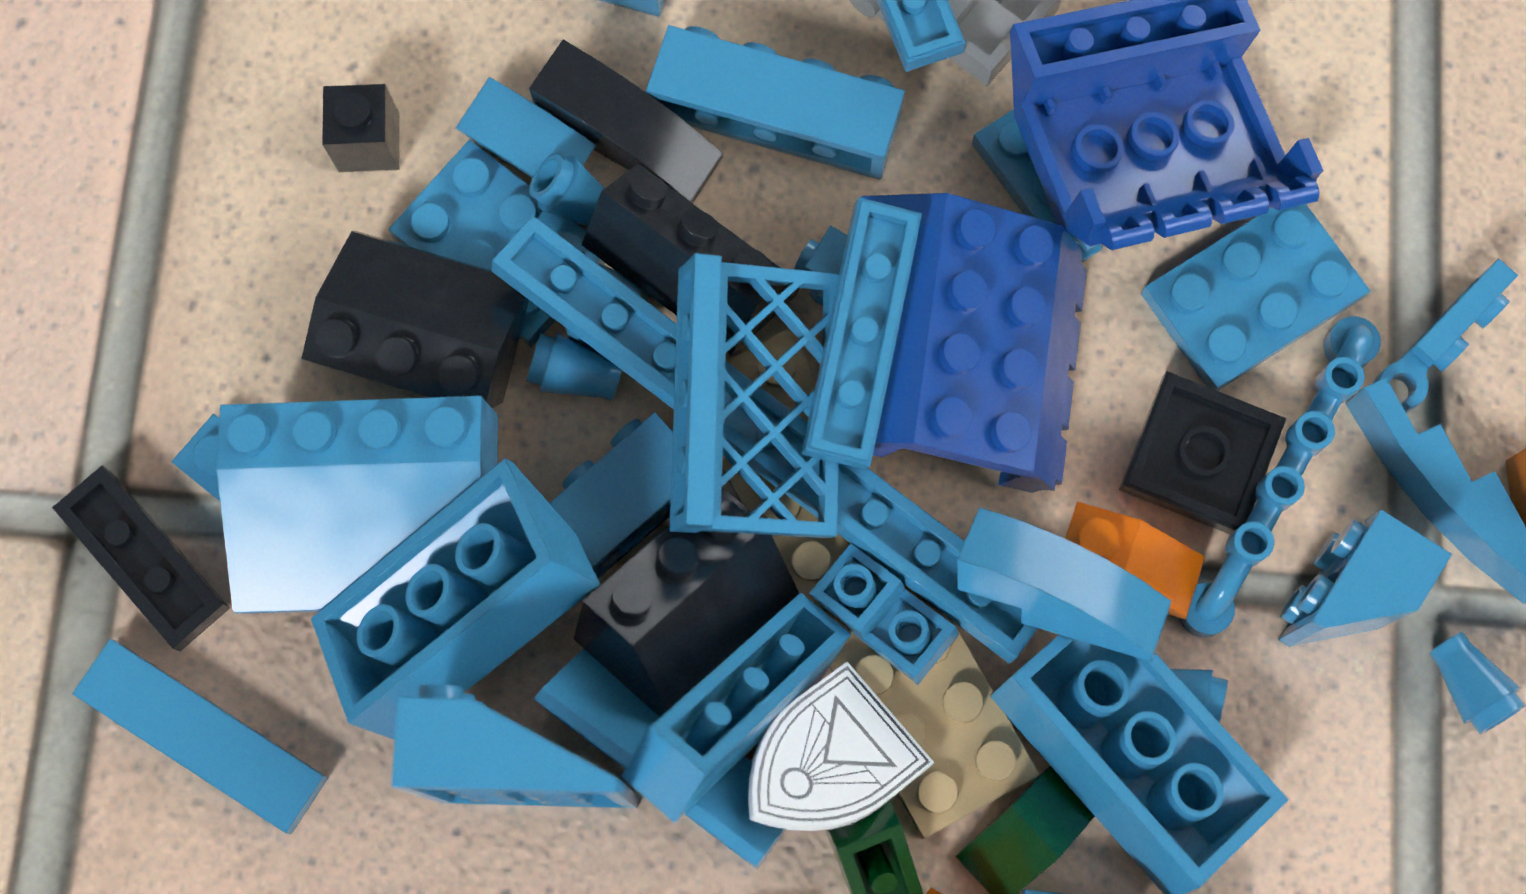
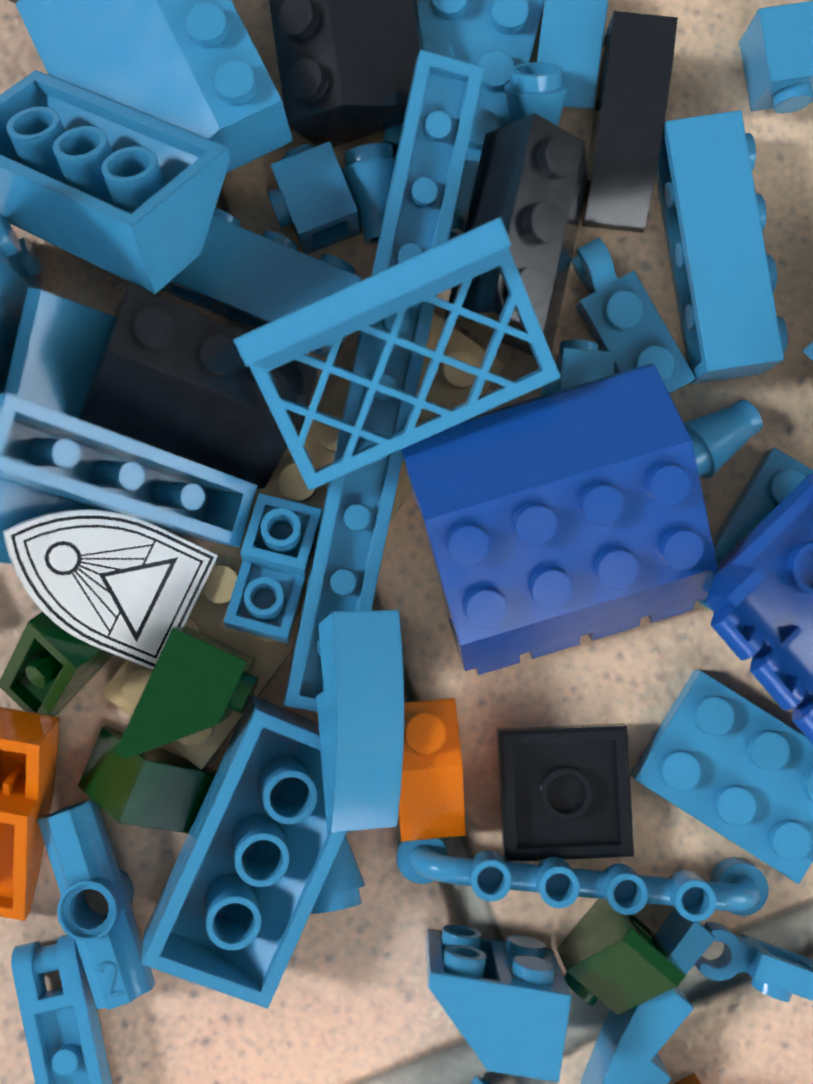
camera: 65 degrees right, 10 degrees up
(551, 425) = (314, 197): none -> dark azure brick
(797, 206) = (626, 319): none -> dark azure plate
(861, 334) = (512, 422): dark azure tile -> none
(941, 168) = (722, 434): none -> dark azure cone
(967, 738) = (188, 691): none -> dark green slope
(1369, 469) = (617, 960): none -> dark green slope

